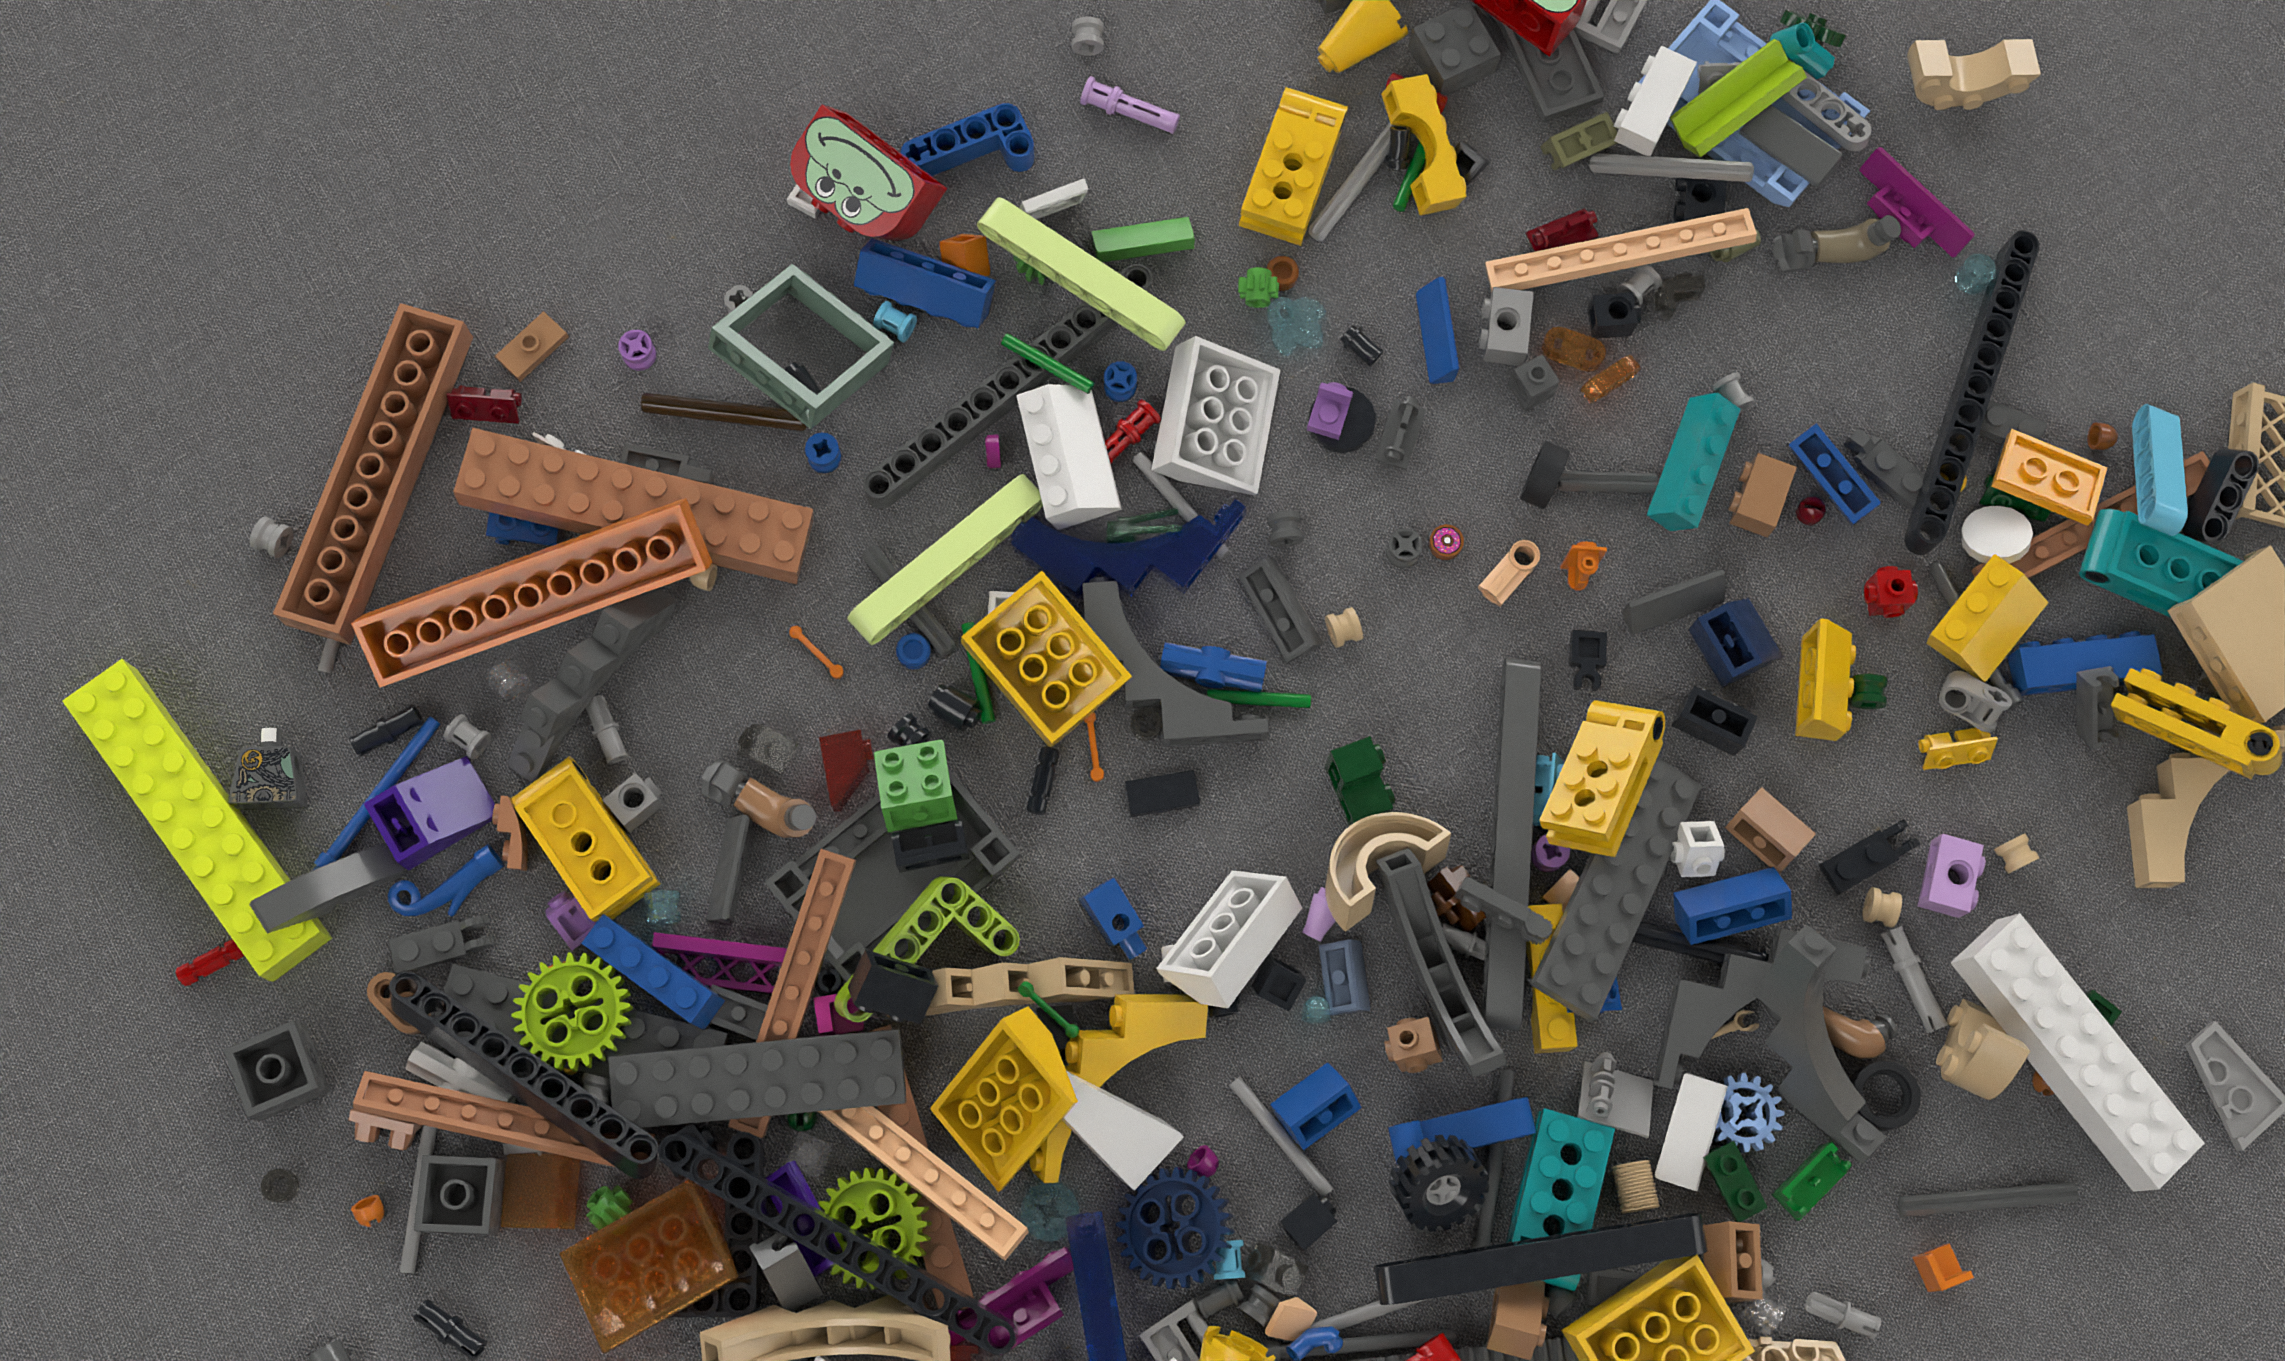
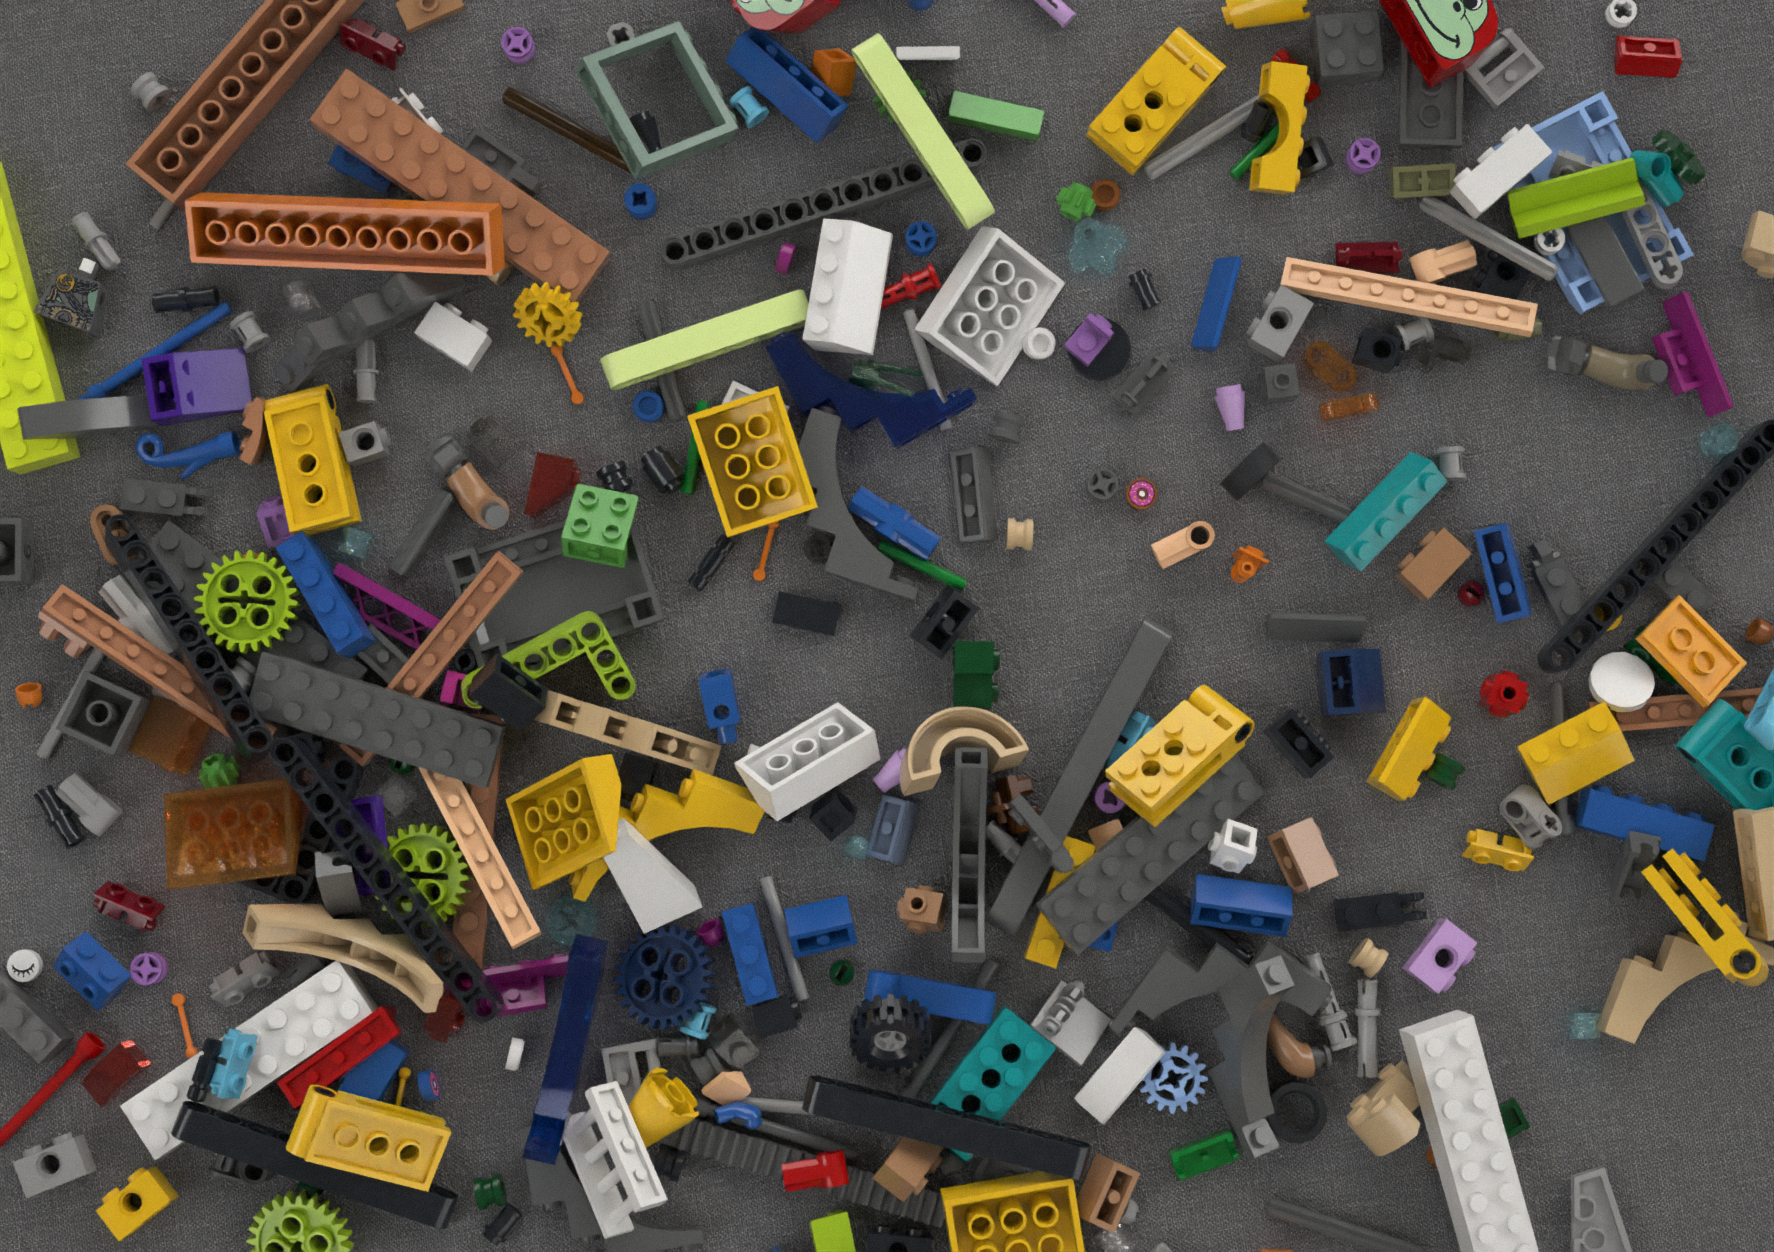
camera: 25 degrees right, 10 degrees up
(268, 708) = (95, 240): none -> light grey axle
(486, 1305) = (95, 810): none -> light grey piece
(684, 657) = (453, 335): none -> white brick
(777, 593) = (547, 314): none -> yellow gear
(930, 846) = (592, 581): black hinge -> none
(1027, 990) = (619, 738): green hinge -> none
(1047, 363) = (861, 200): green bar -> none
(1254, 1165) = (750, 953): none -> blue brick
(1280, 436) = (1039, 343): none -> white tile
(1307, 742) = (944, 621): none -> black brick
(1348, 1148) = (848, 975): none -> dark green hinge
(1496, 422) = (1231, 406): none -> lavender cone
(1511, 135) = (1367, 150): none -> medium lavender wheel
(1587, 653) = (1218, 640): black plate -> none
(1635, 212) = (1435, 266): none -> light nougat piece
(1635, 1186) = (1055, 1099): tan piece -> none
(1735, 1181) = (1137, 1130): dark green hinge -> none
(1736, 1024) = (1201, 1003): tan hand -> none
(1738, 148) = (1559, 241): none -> white bush
(1876, 982) = (1332, 1017): none -> light grey pin
(2016, 853) = (1505, 960): tan wheel -> none
(2124, 886) = (1583, 1025): none -> clear light blue wheel

